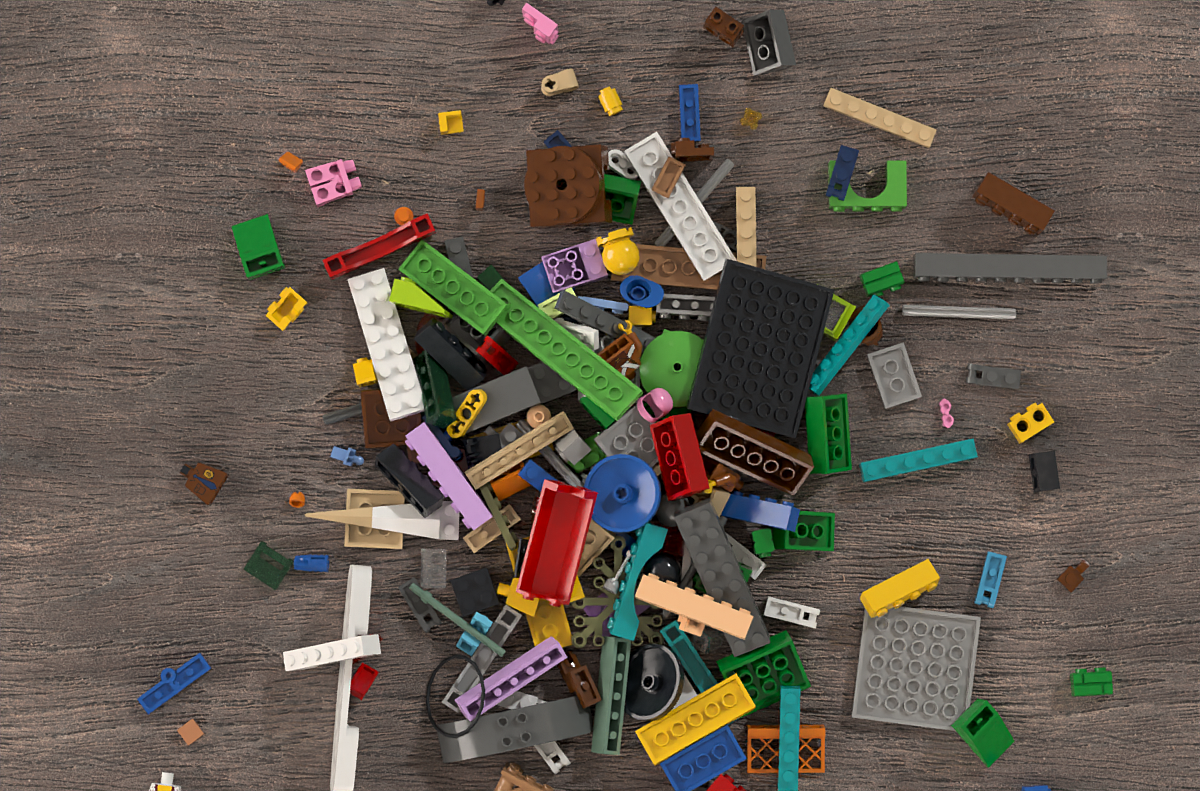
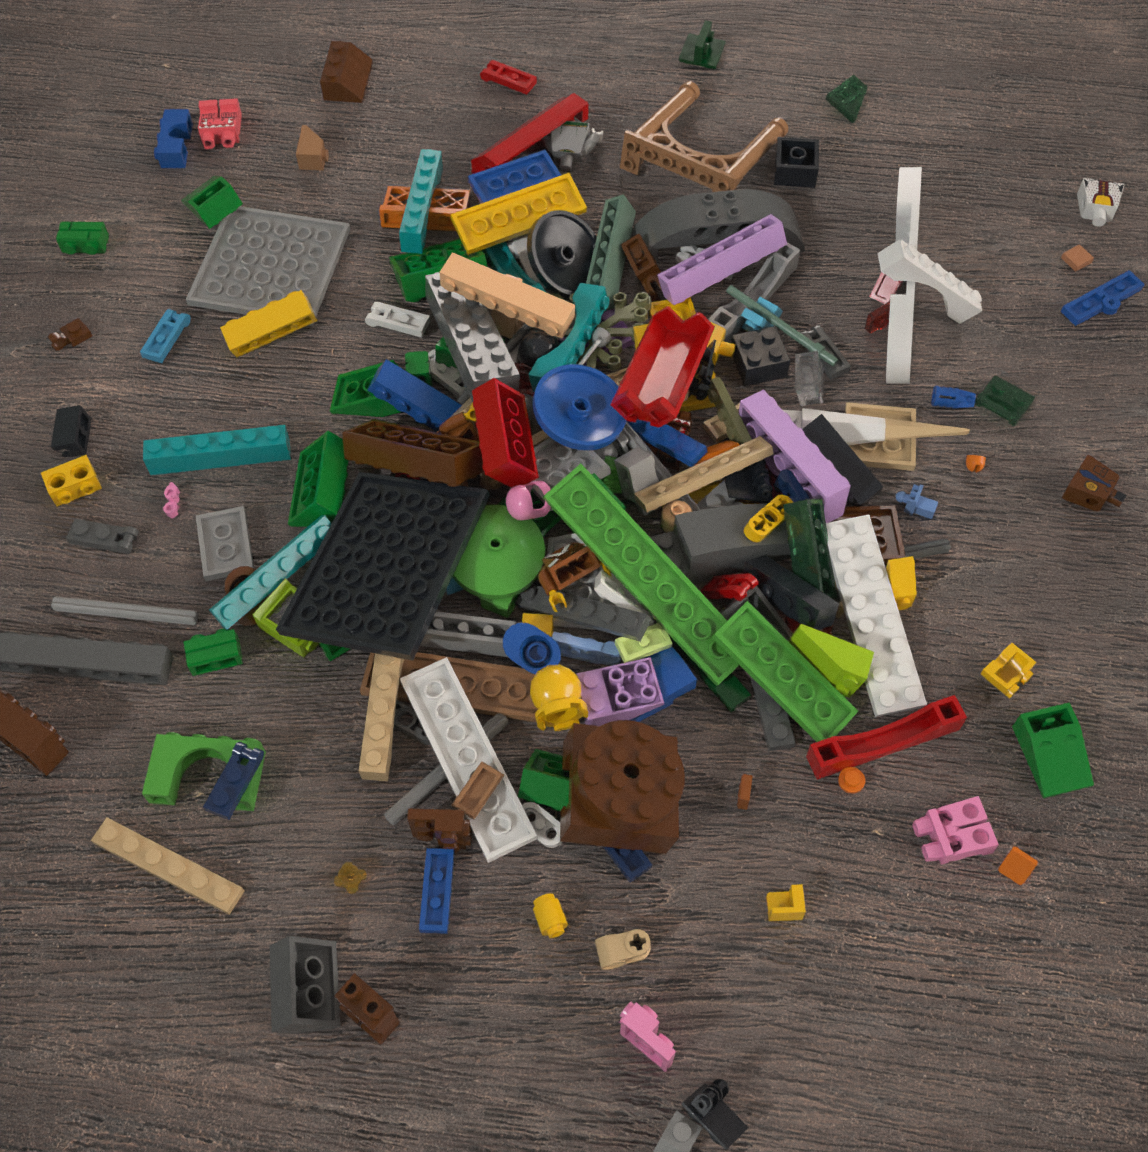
camera: 170 degrees left, 25 degrees down
(428, 696) = (762, 260): black piece -> none

